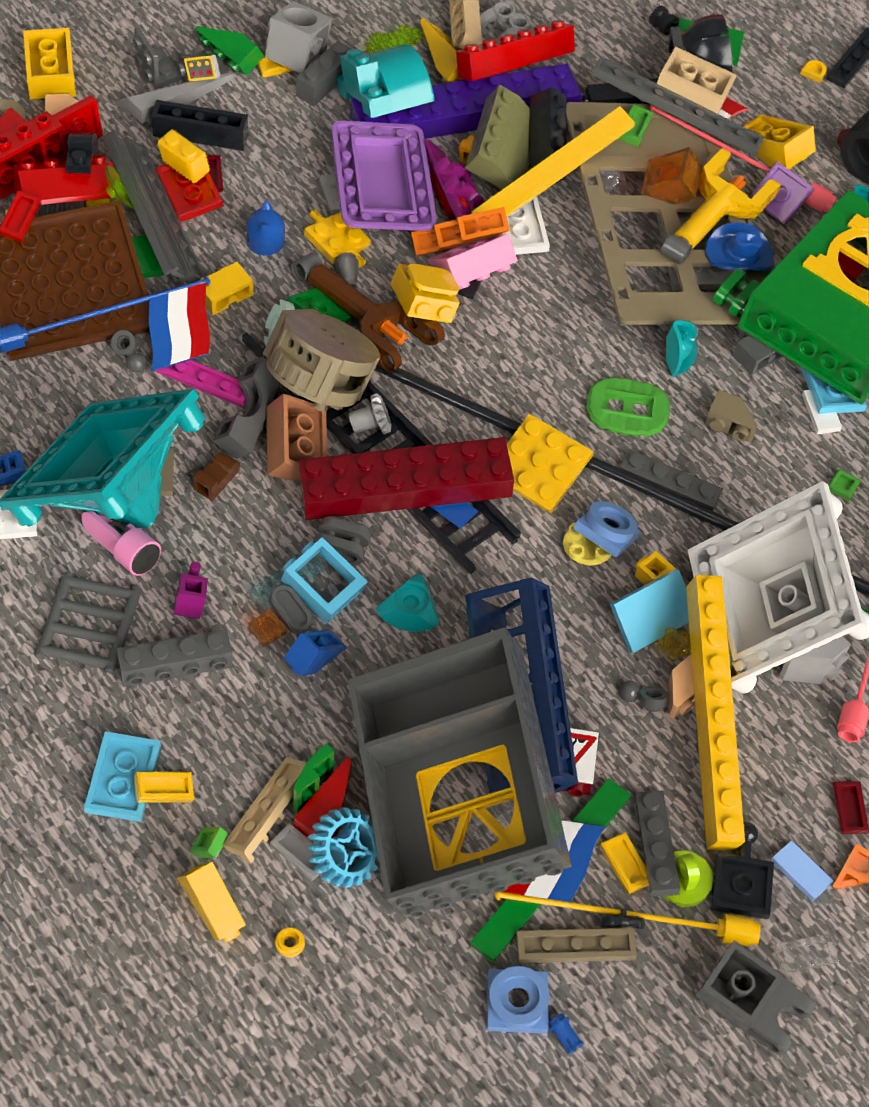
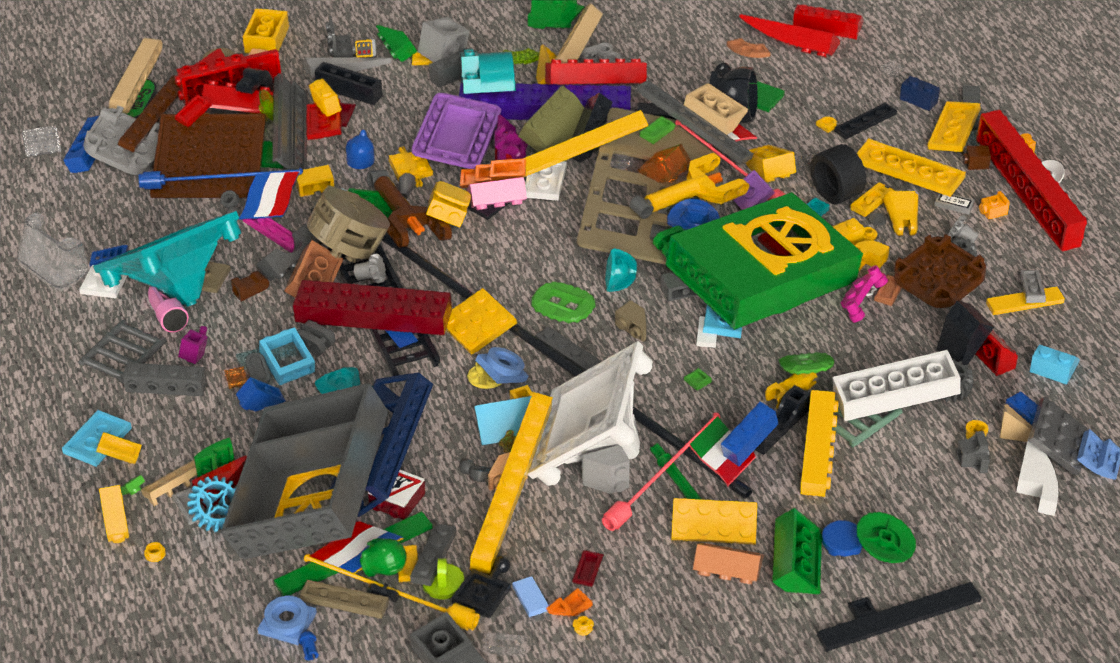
camera: 25 degrees right, 15 degrees down
(608, 870) = (383, 557): none -> green hair

